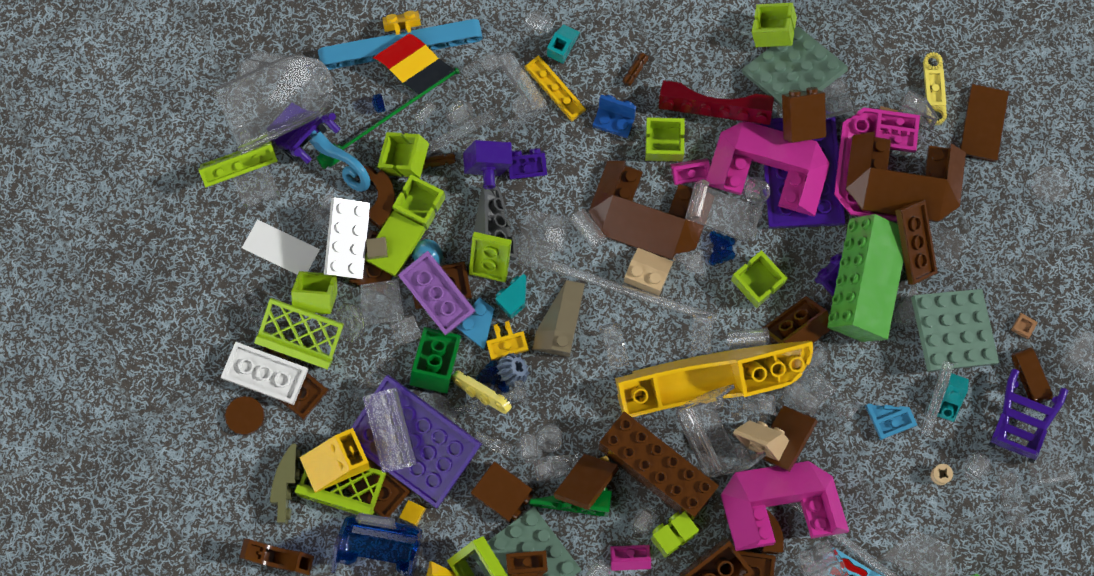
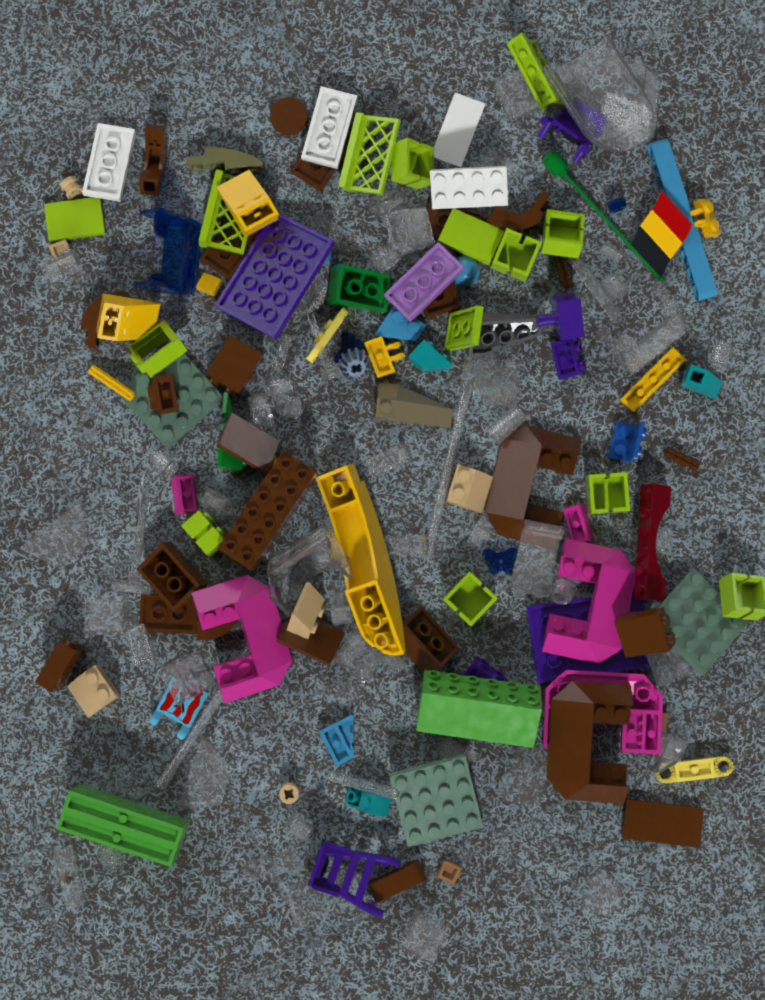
camera: 80 degrees right, 10 degrees up
(354, 169) = (540, 186): dark azure plant -> none
(374, 520) = (194, 248): clear tile -> none
(376, 248) = (463, 218): dark tan tile -> none
(389, 430) = (280, 249): clear brick -> none
(748, 338) = (407, 592): clear pin -> none
(916, 242) = (522, 755): reddish brown tile -> none

